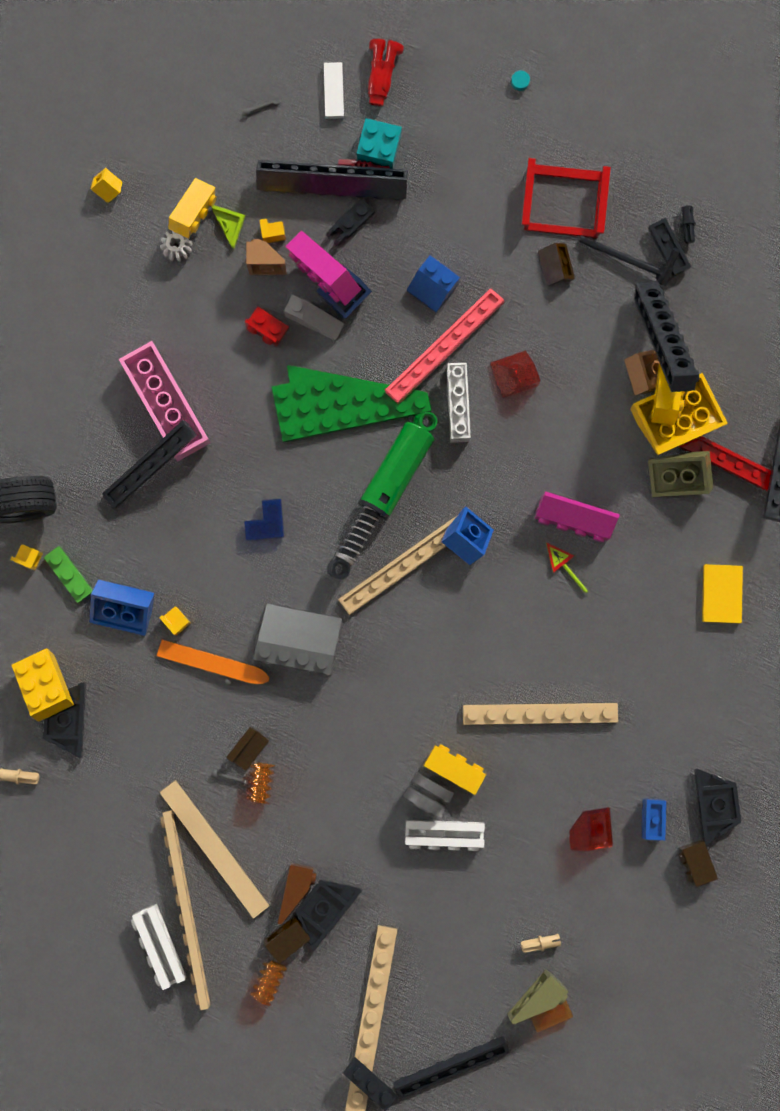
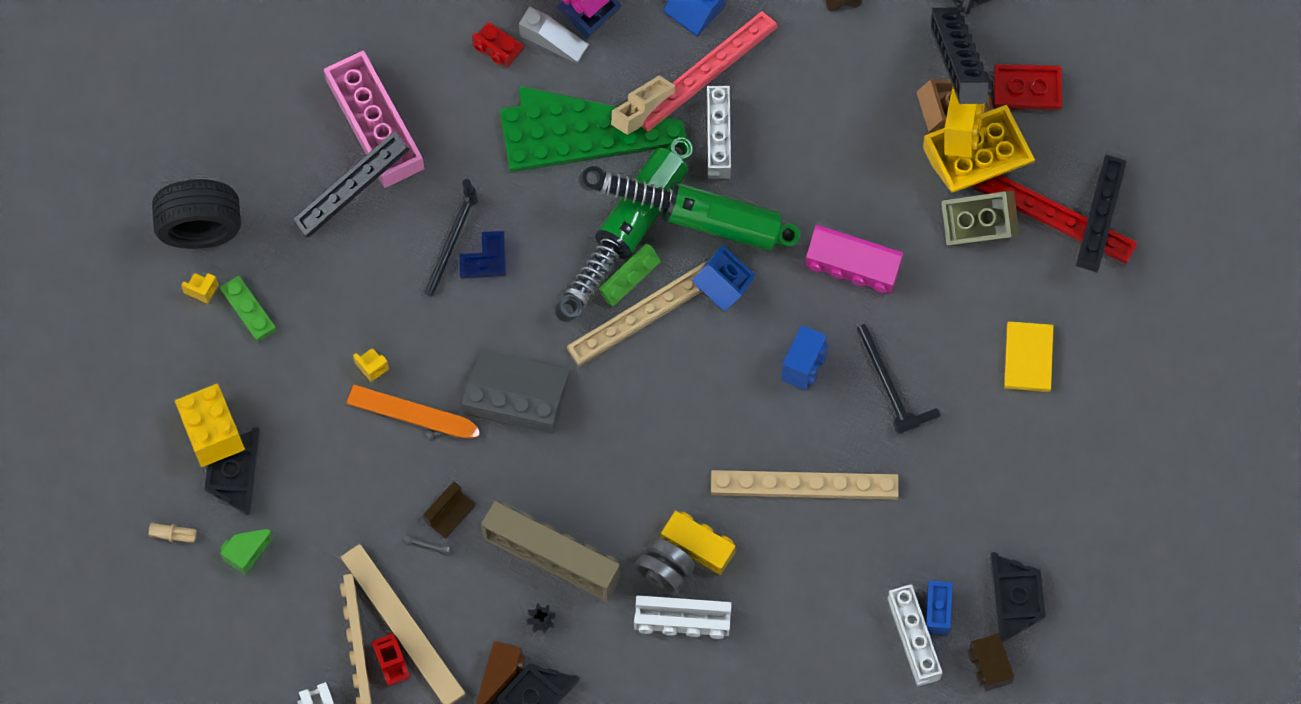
camera: 10 degrees right, 15 degrees down
(79, 791) = (245, 549): none -> bright green slope
(121, 607) = (308, 345): blue slope -> none
(205, 880) = (391, 660): none -> red brick
(250, 468) = (470, 199): none -> black bar
(260, 782) = (460, 548): clear orange piece -> none
(325, 845) = (537, 625): none -> black gear
(334, 785) = (551, 550): none -> dark tan brick
(388, 534) = (629, 275): none -> bright green plate
(392, 381) = (640, 104): none -> tan slope
(445, 479) = (700, 210): none -> green piece
(515, 373) = (788, 105): clear red slope -> none
(537, 606) = (804, 358): none -> blue brick
(558, 559) = (833, 311): piece -> none
(592, 830) = (862, 618): clear red slope -> none
(621, 655) = (904, 421): none -> black bar
(635, 843) = (914, 635): none -> white brick
(718, 351) = (1028, 86): none -> red plate

